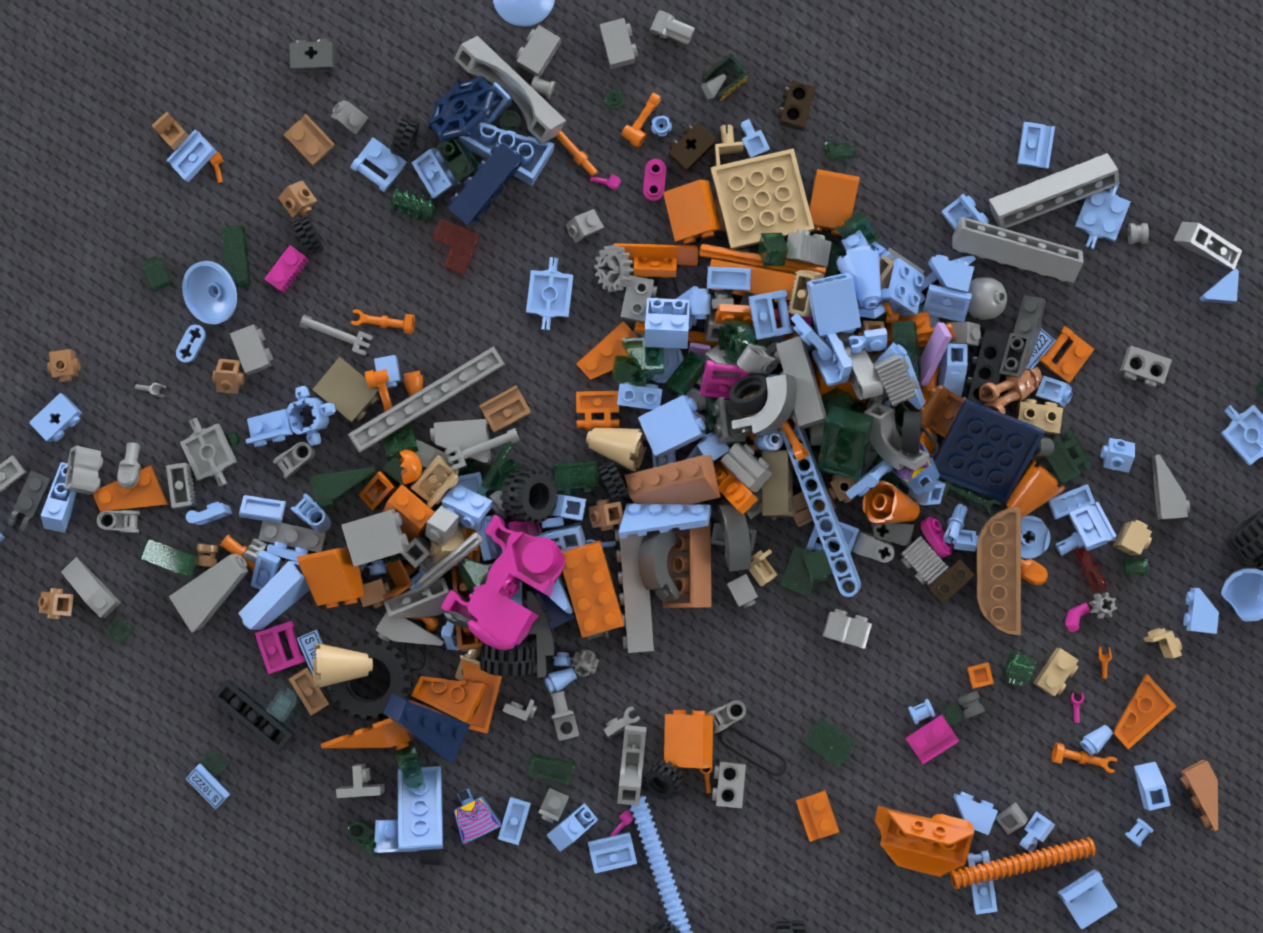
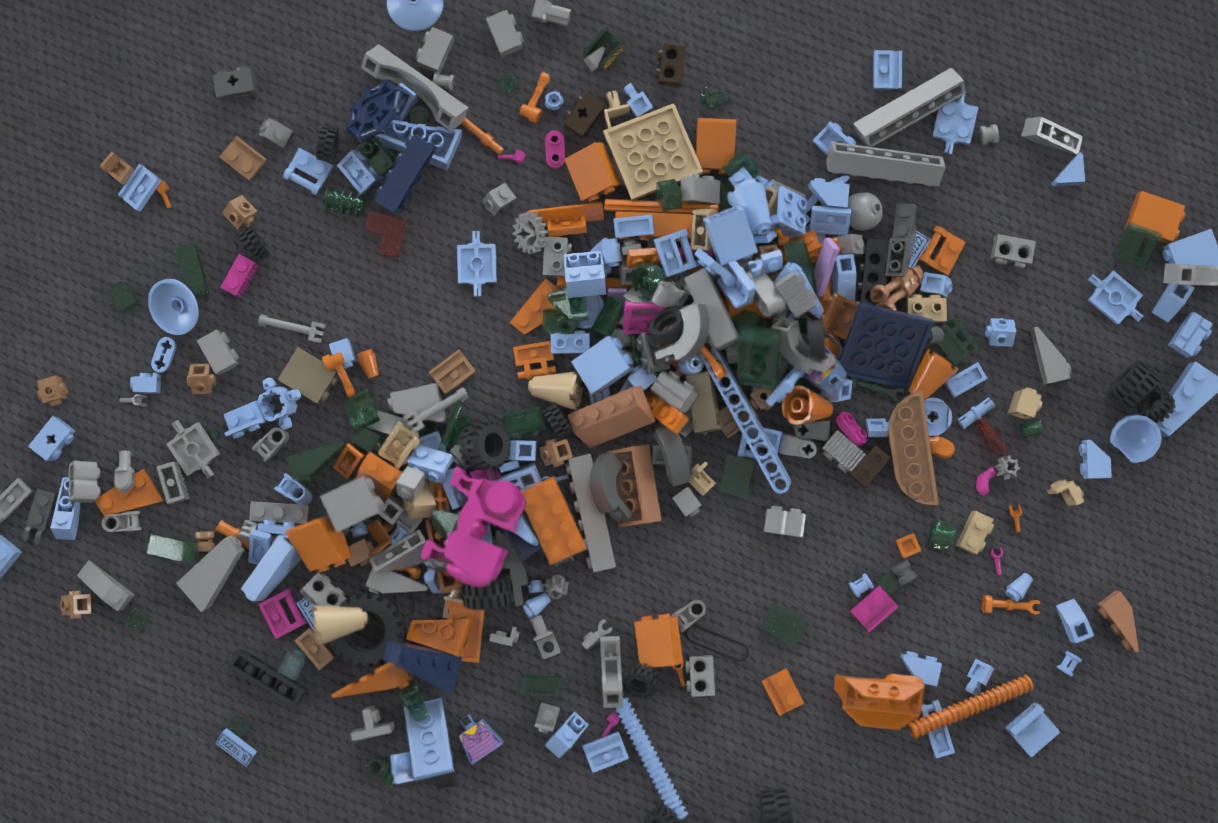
camera: 15 degrees left, 0 degrees up
(167, 372) = (146, 383): none -> light blue brick
(213, 512) = (205, 502): light blue plate -> none
(262, 509) = (249, 492): light blue tile -> none
(323, 636) = (320, 598): none -> light grey brick
(384, 321) = (354, 309): orange piece -> none
(412, 466) = (376, 434): orange hair -> none
(426, 399) = (380, 374): light grey tile -> none
(450, 560) = (423, 513): light grey axle -> none
(514, 820) = (514, 736): light blue plate -> none
(662, 517) = (593, 449): light blue wing -> none
(817, 566) = (750, 470): clear green brick -> none
(955, 524) = (866, 414): light blue axle -> none
(1012, 818) = (955, 668): light grey slope -> none
(1092, 526) = (988, 398): light blue plate -> none
(1143, 712) = (1057, 556): orange wing -> none

